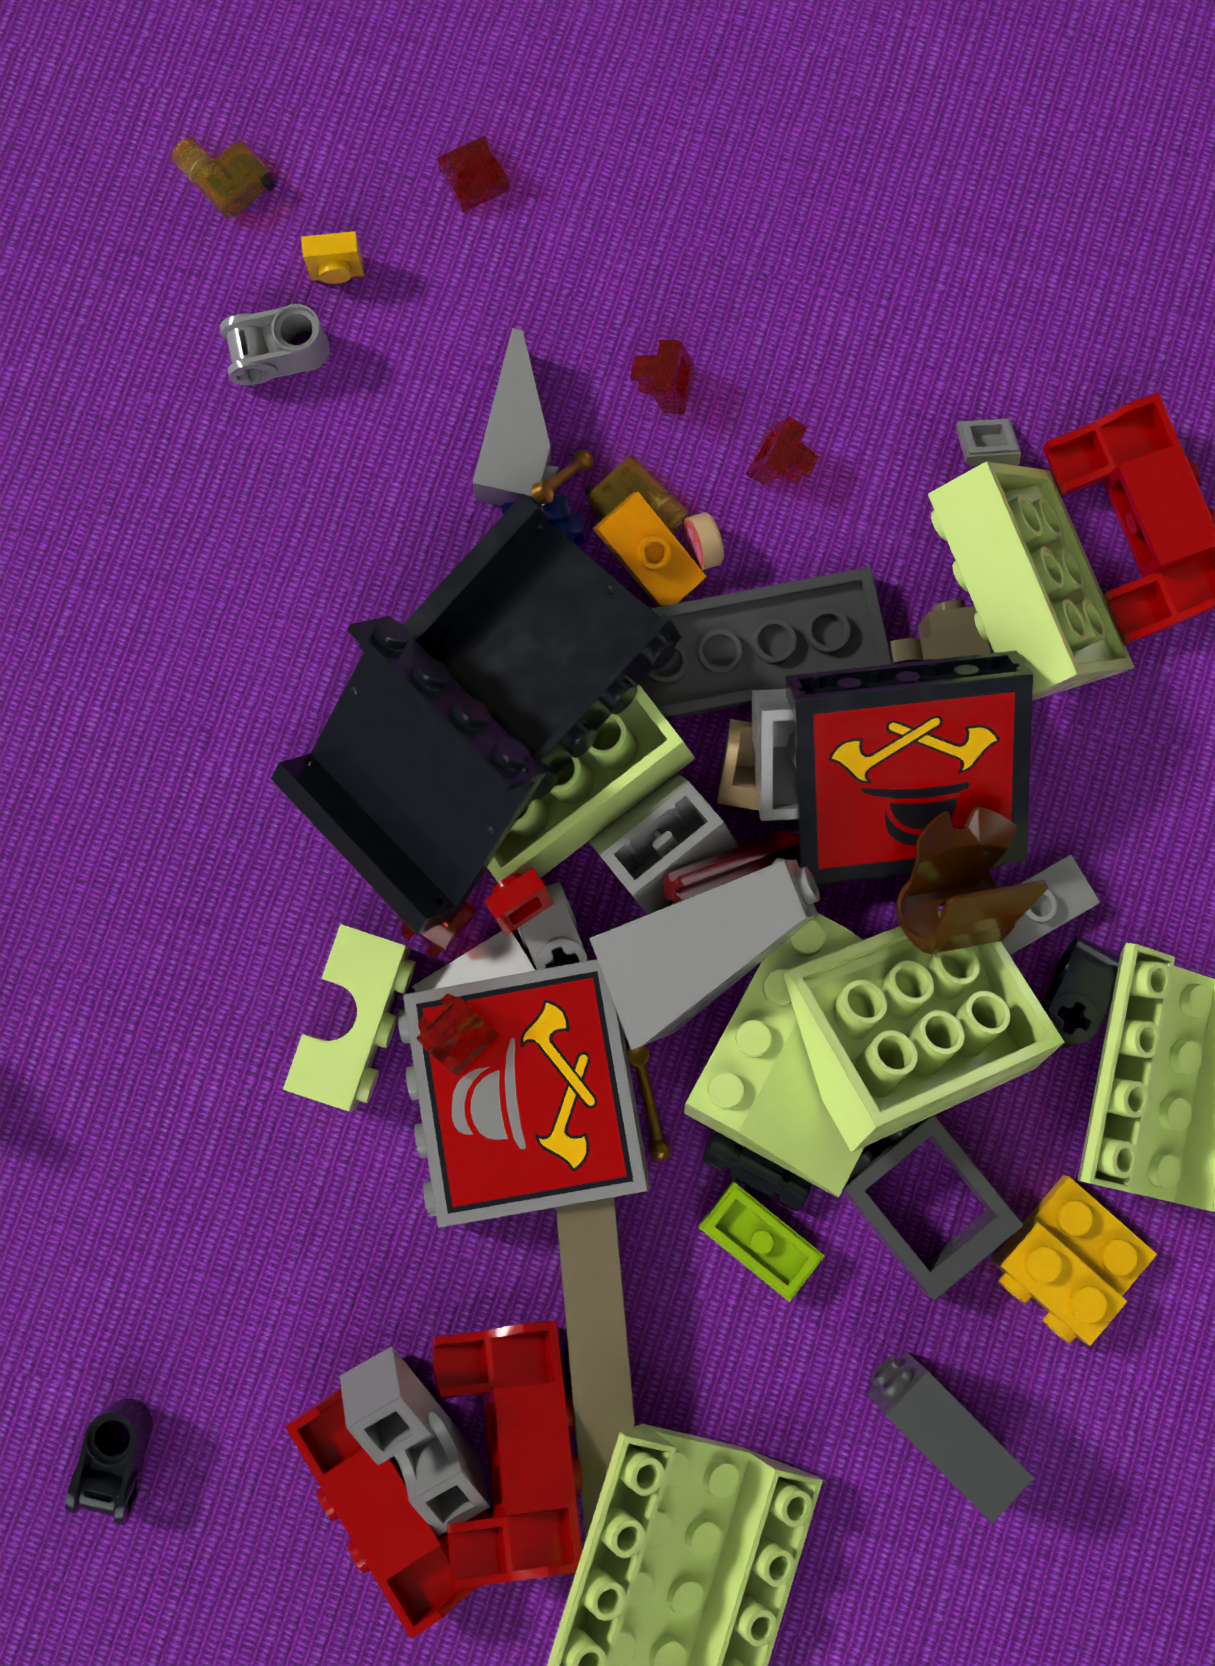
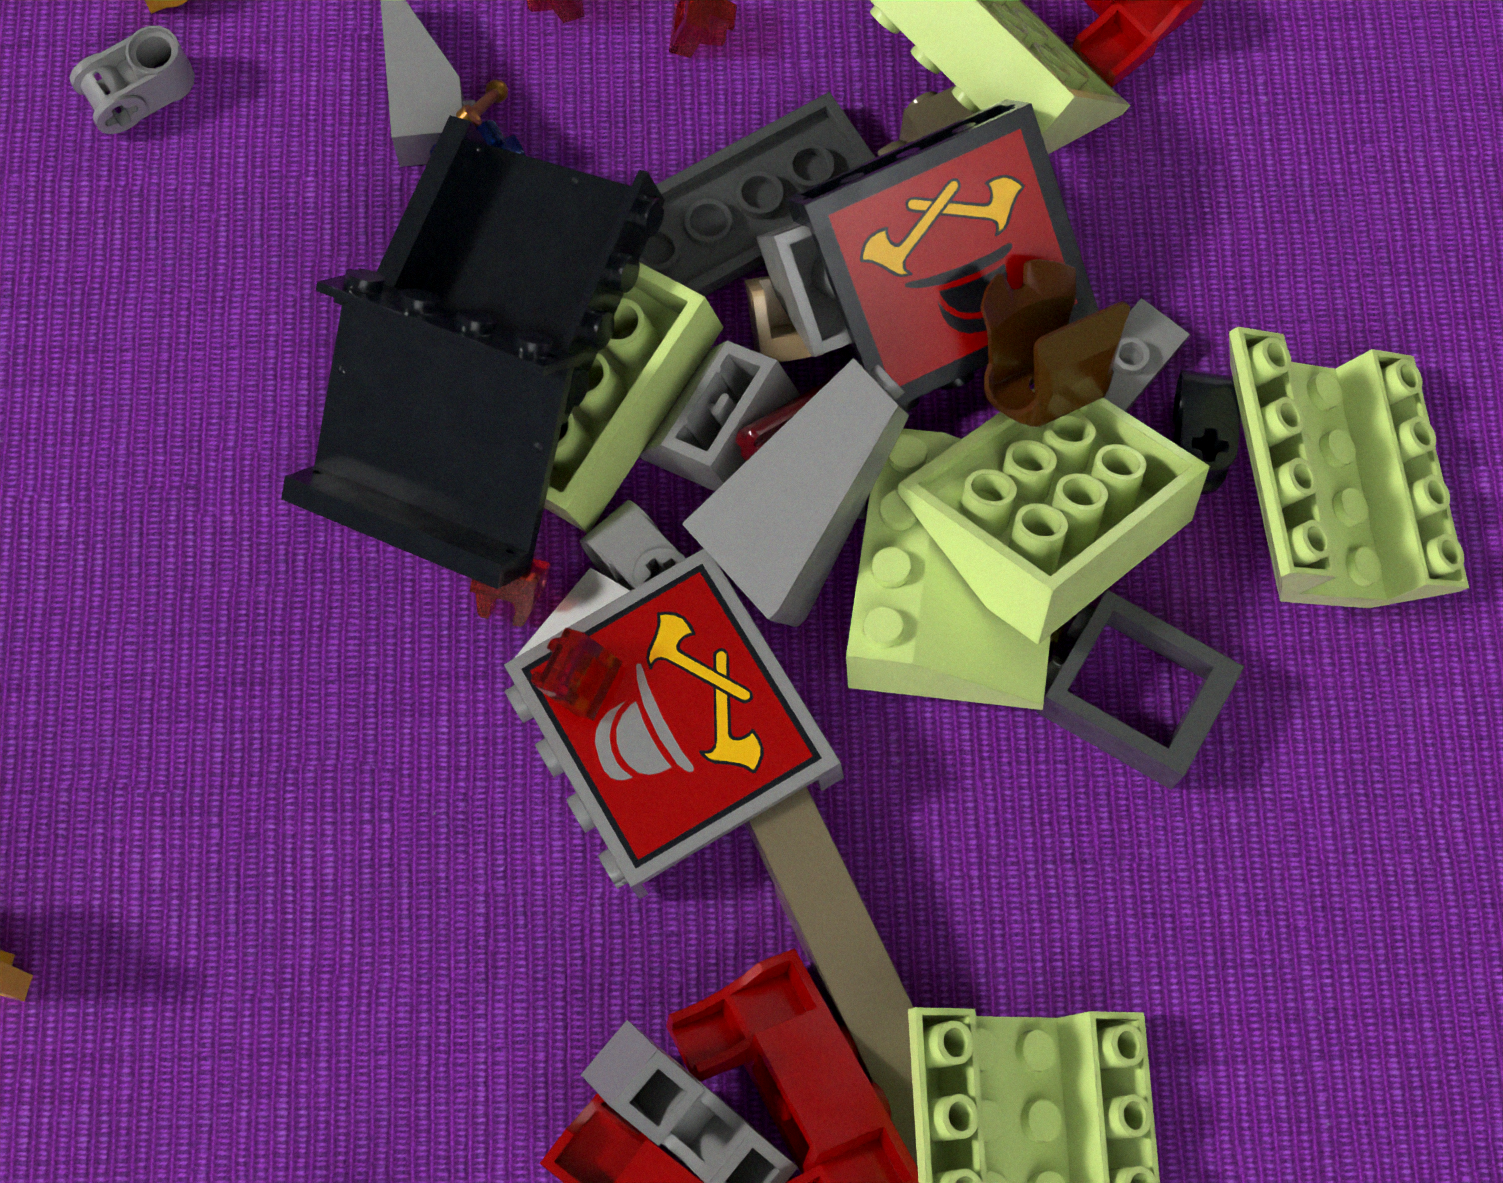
camera: 20 degrees left, 10 degrees down
(341, 1069) = (459, 773): yellowish green arch -> none
(518, 900) = (592, 521): red plate -> none
(634, 477) = (557, 105): clear yellow piece -> none
(649, 551) = (595, 144): light orange plate -> none
(659, 1149) = (837, 738): pearl gold hinge -> none
(704, 540) = (650, 123): tan tile -> none
(756, 1172) = (948, 724): black axle -> none
(761, 1241) = (980, 792): lime plate -> none
(948, 1435) = (1254, 906): dark grey window -> none
(1072, 1262) = (1310, 697): yellow plate -> none

